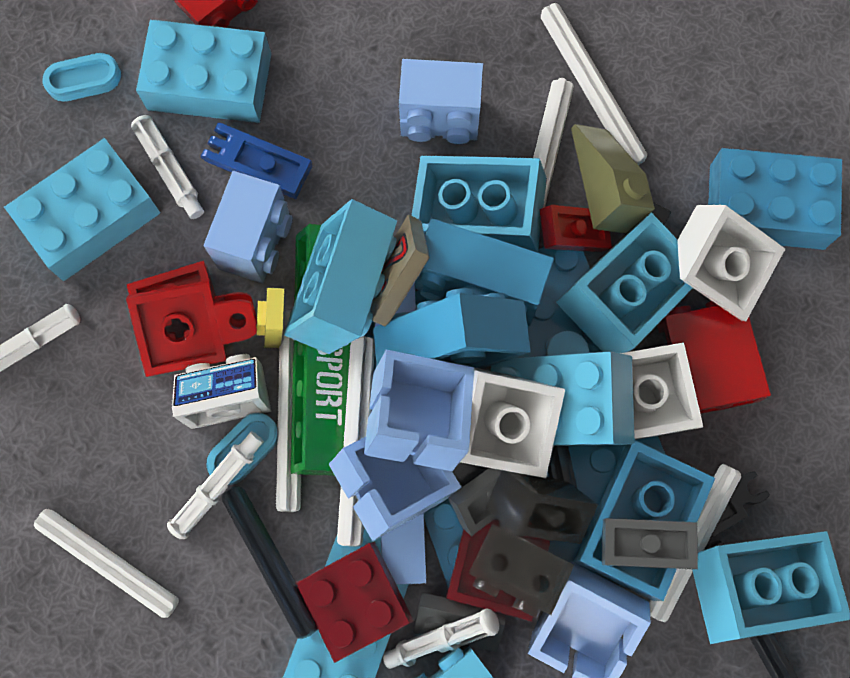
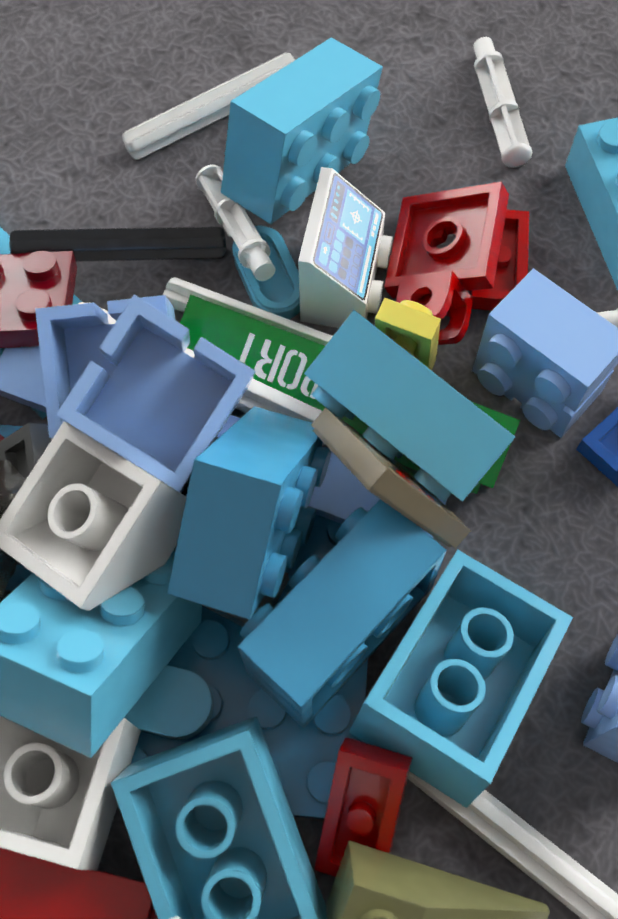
camera: 115 degrees right, 10 degrees down
(130, 455) = (295, 124): none -> medium azure brick

